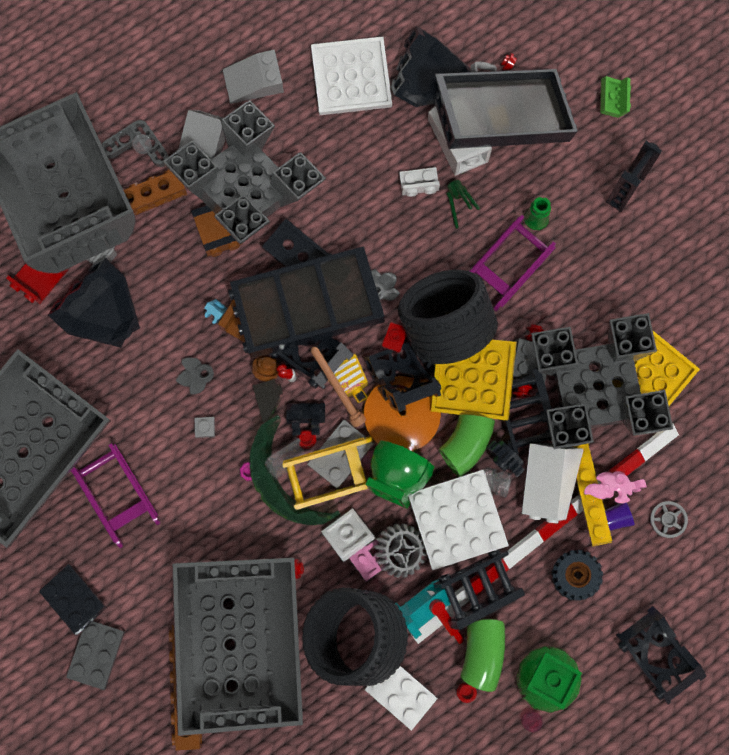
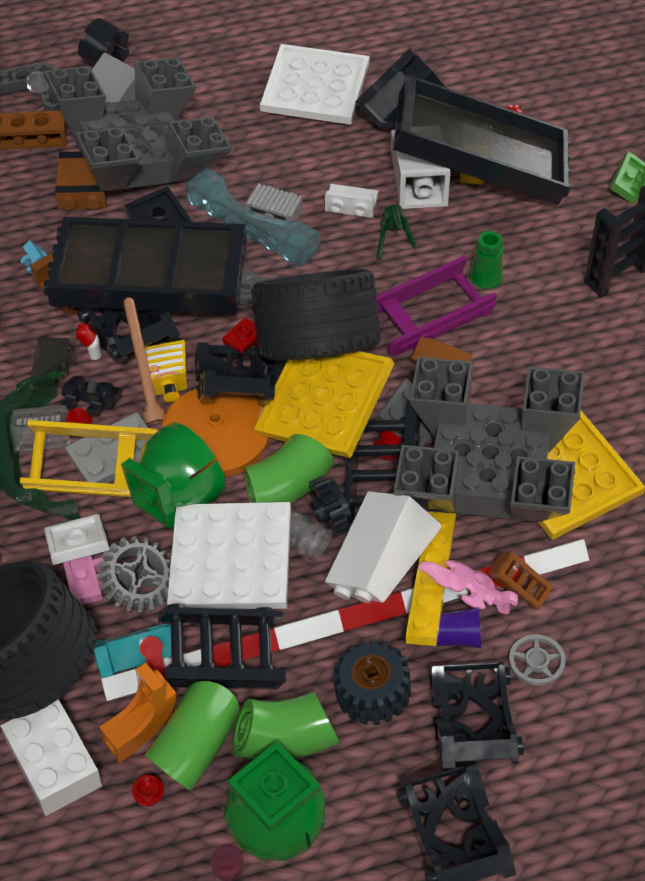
camera: 20 degrees right, 25 degrees down
(177, 92) = (103, 37): none -> black brick
(253, 77) = (206, 56): light grey slope -> none
(265, 368) = (63, 327): dark orange plate -> none
(367, 208) = (274, 203): none -> light grey brick
(391, 235) = (289, 239): none -> clear light blue arch
(445, 651) = (142, 716): none -> orange arch
(532, 305) = (435, 349): none -> dark orange slope
(536, 629) = (295, 723): none -> bright green brick
(631, 465) = (510, 559): none -> dark orange slope
(641, 604) = (488, 743): none -> black fence

